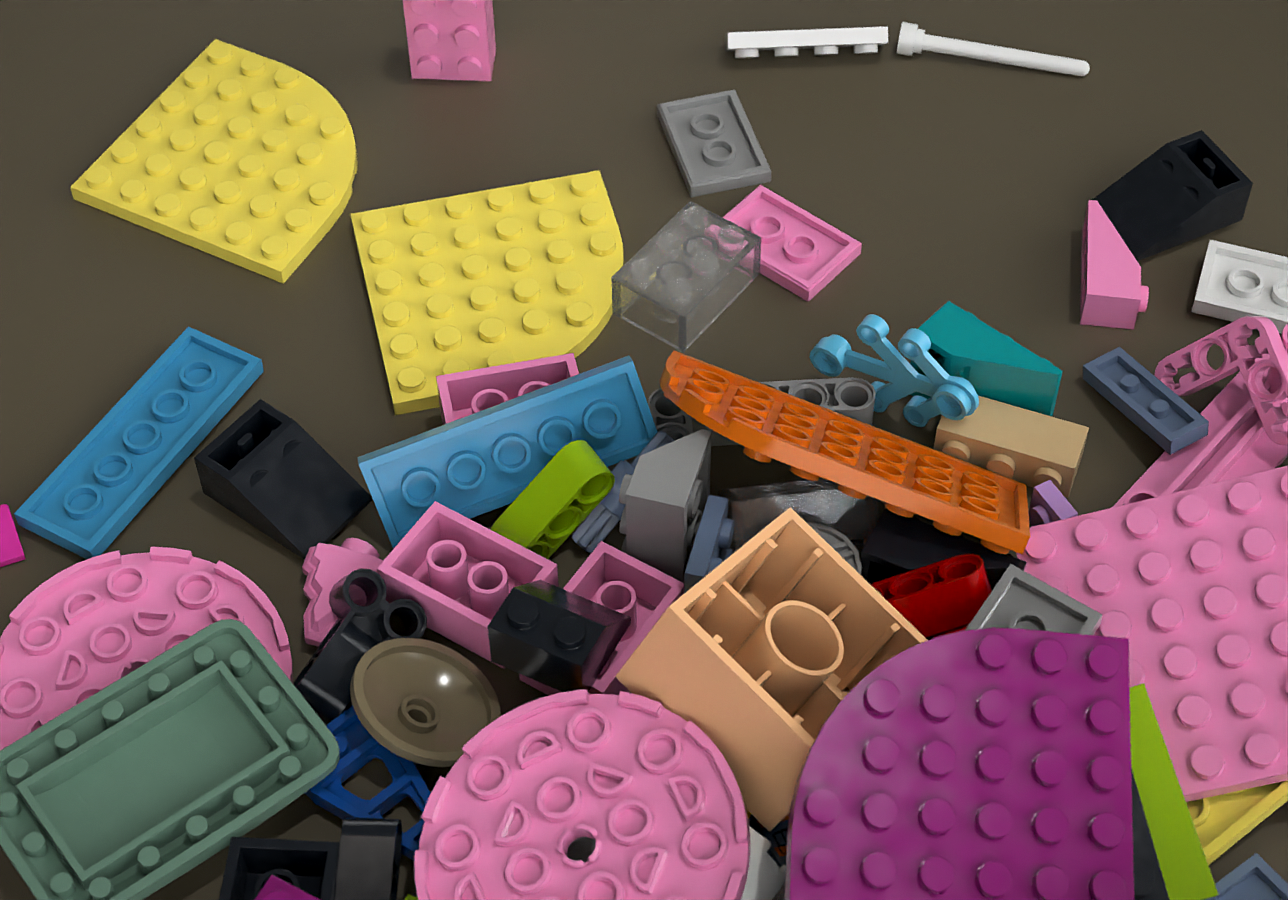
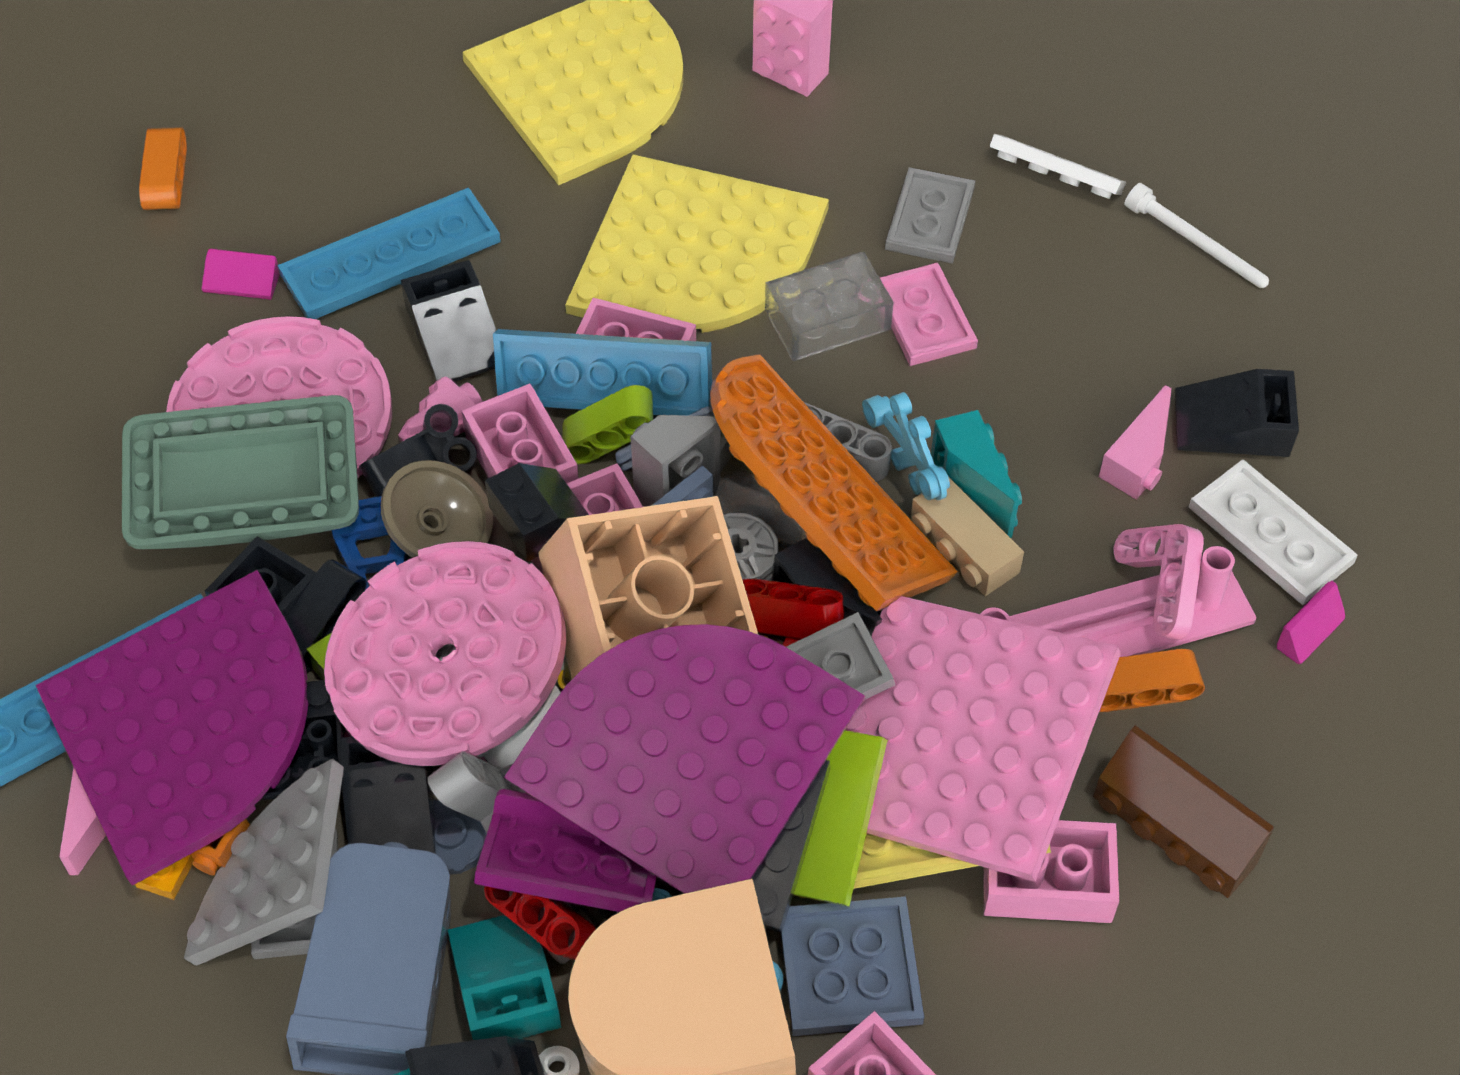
camera: 30 degrees right, 5 degrees up
(1049, 505) = (955, 593): lavender plate -> none
(1145, 400) = (1089, 553): sand blue plate -> none

